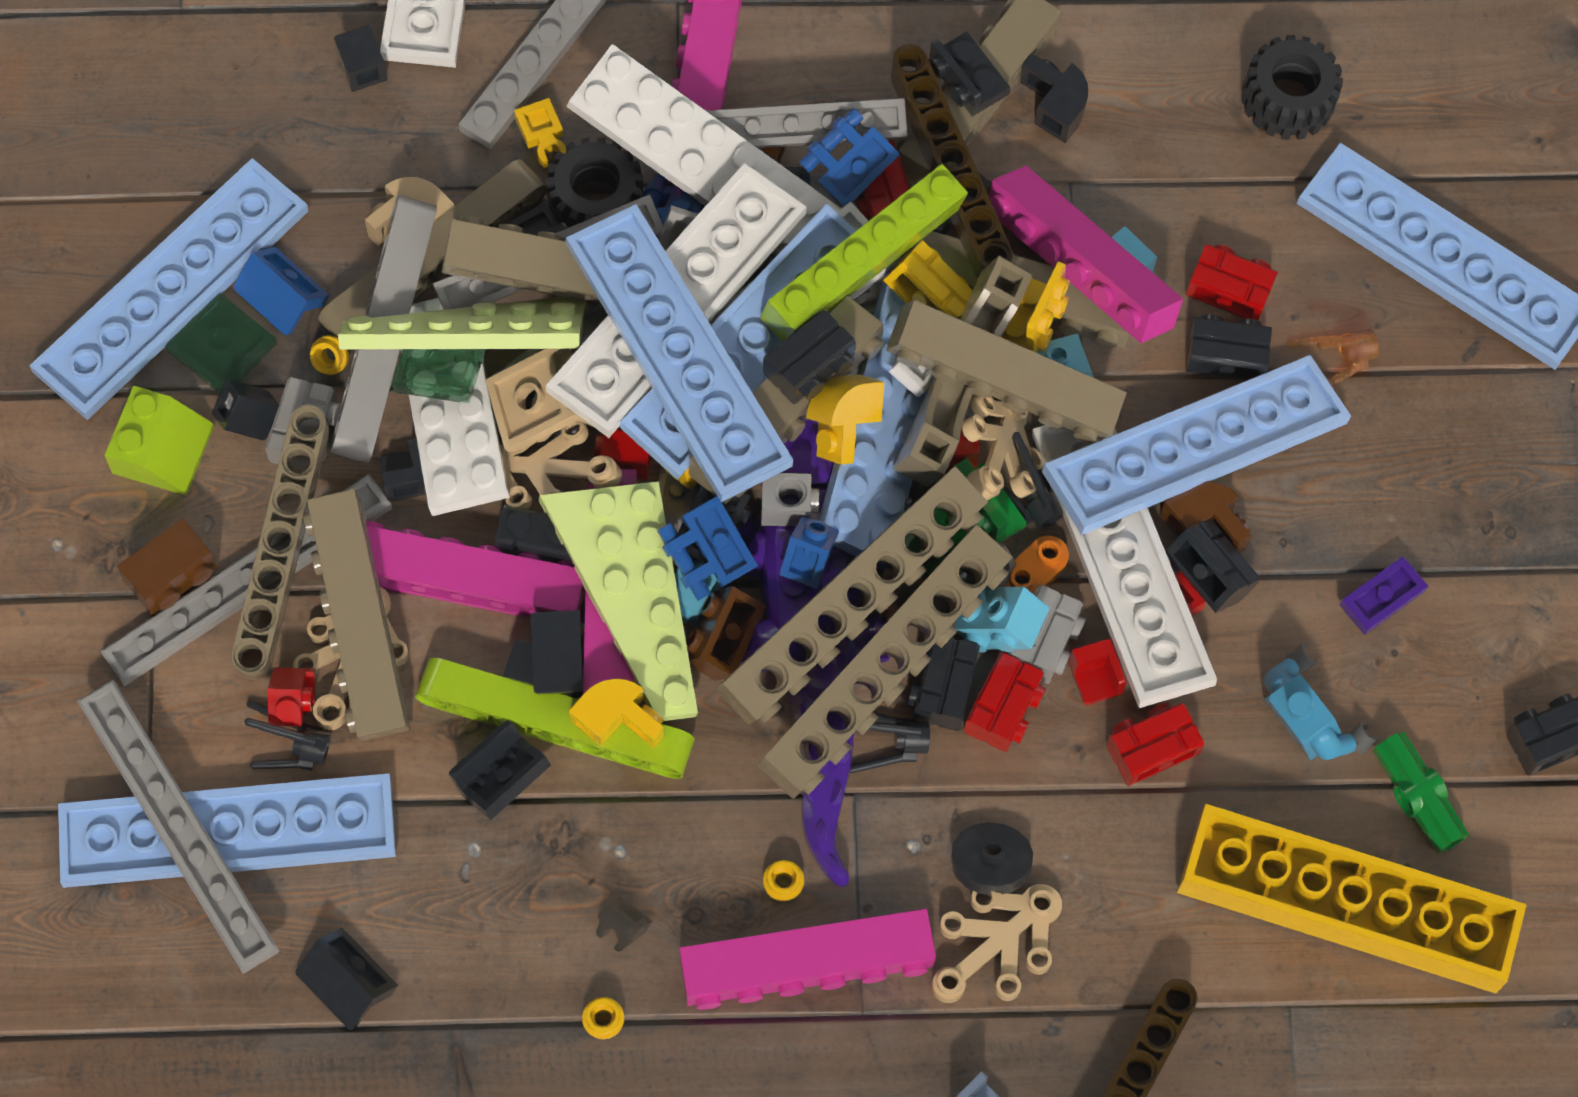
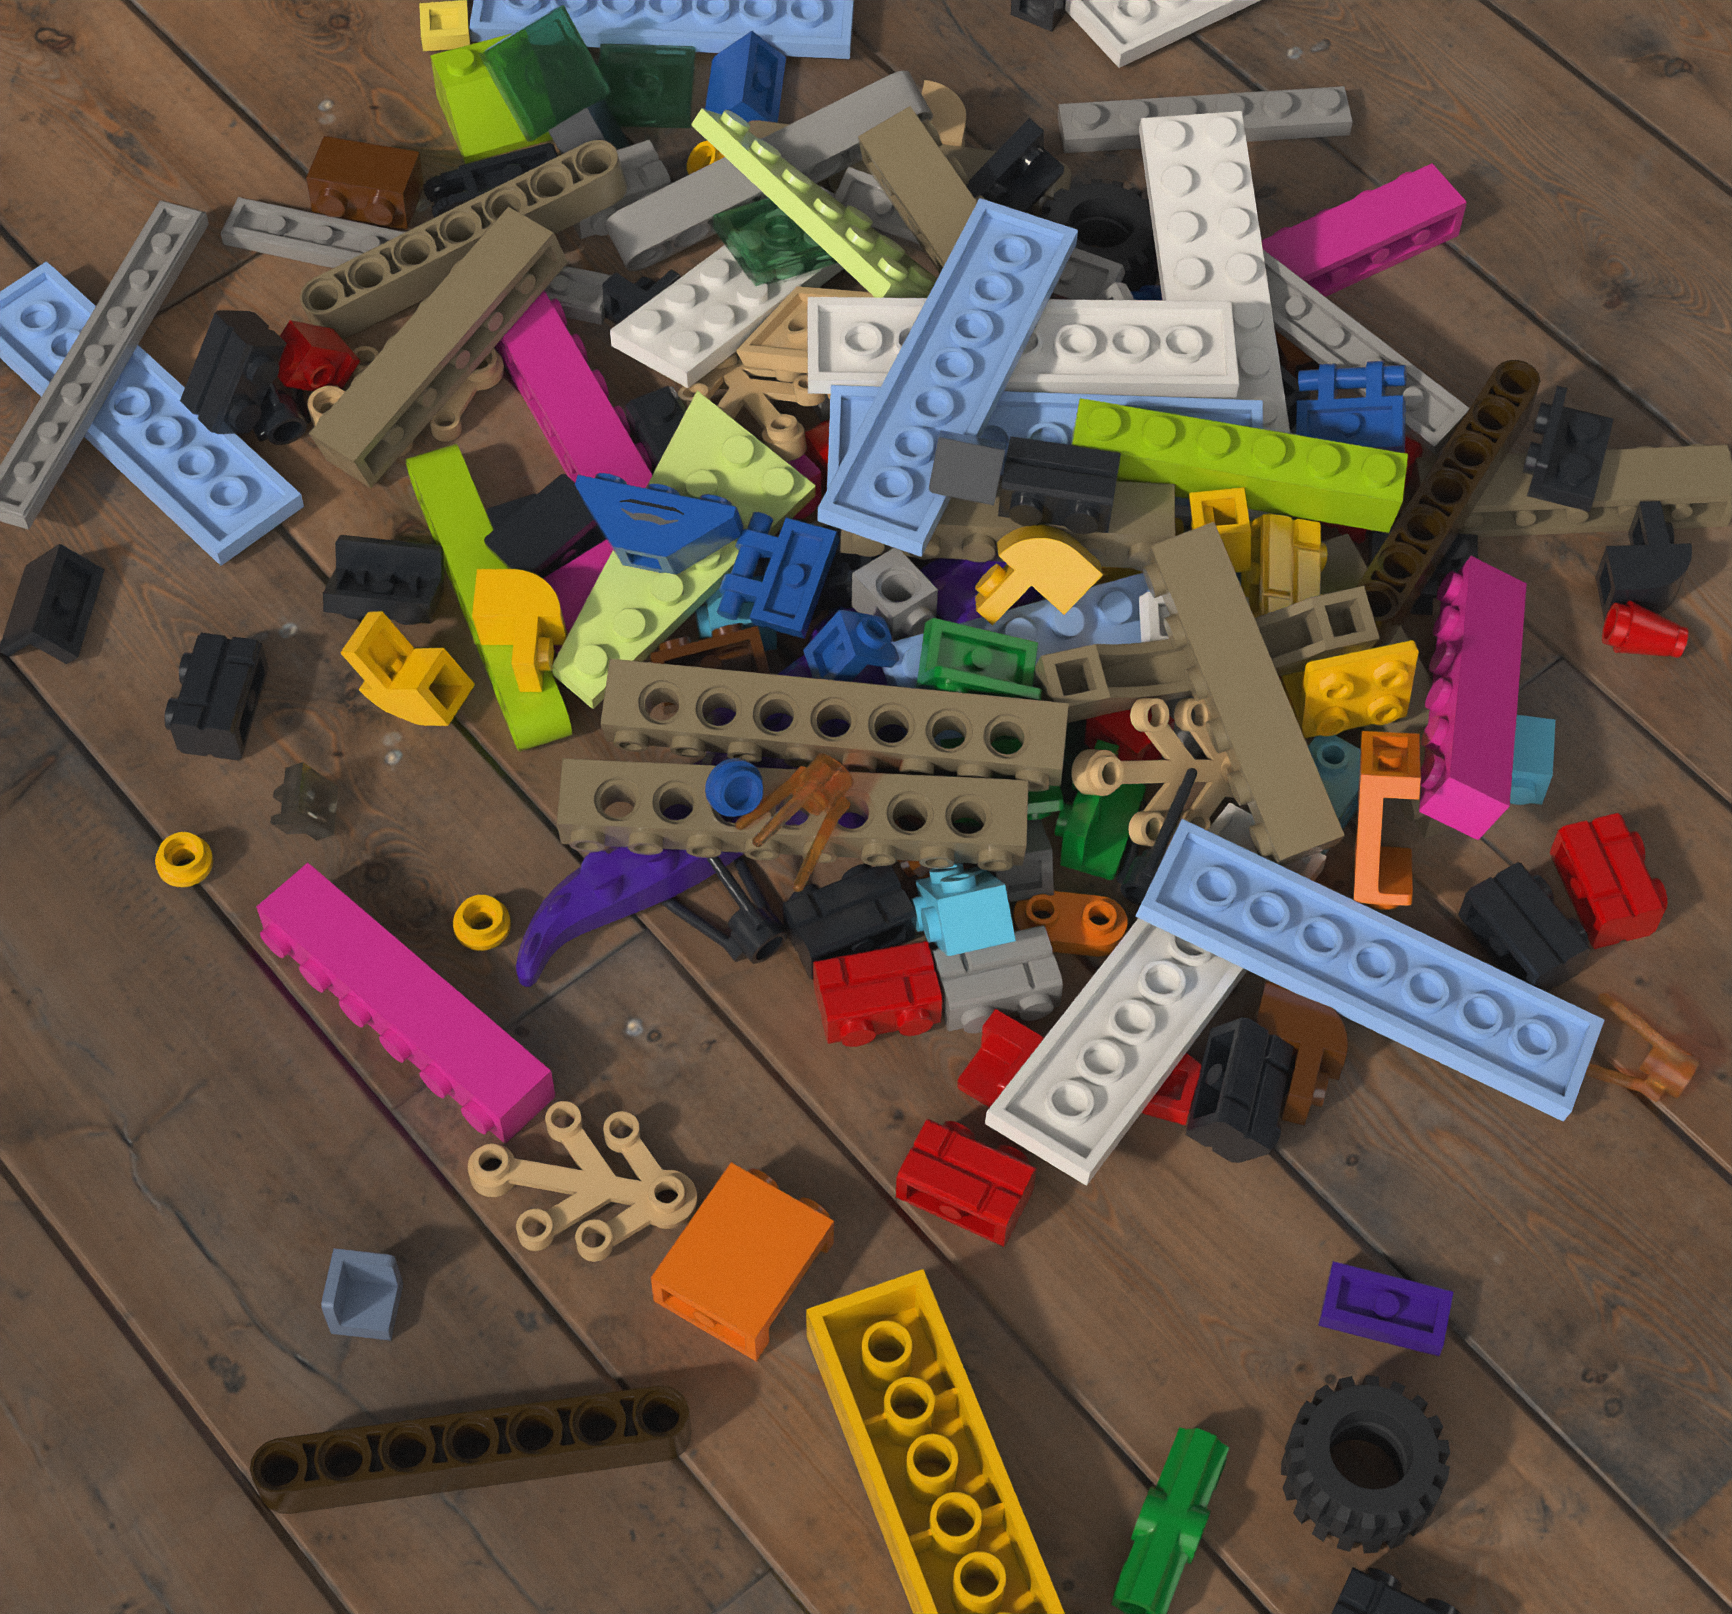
camera: 55 degrees right, 10 degrees down
(63, 426) = (444, 25): none -> light yellow plate
(183, 398) = (545, 73): none -> clear green tile
(230, 486) = (483, 176): none -> black hinge
(279, 750) = (233, 372): none -> black brick
(502, 921) = (217, 696): none -> black brick
(520, 195) = (1018, 170): none -> black bracket
(540, 127) = (1121, 162): yellow plate -> none
(585, 803) = (406, 680): none -> yellow brick
(626, 590) = (657, 525): none -> blue slope
(765, 393) = (967, 467): none -> black panel
(866, 679) = (734, 787): none -> blue plate
(878, 493) = (976, 661): none -> green bracket
(890, 292) = (1231, 518): none -> yellow brick
(904, 637) = (814, 789): none -> clear orange plant
(991, 858) = (676, 1105): black plate -> none
(1095, 133) = (1642, 632): none -> red cone
(1112, 350) = (1386, 771): none -> orange panel
(1114, 890) = (741, 1258): none -> orange panel
(1306, 715) = (1144, 1315): dark azure torso -> none
(1480, 650) = (1388, 1422): none -> black tyre

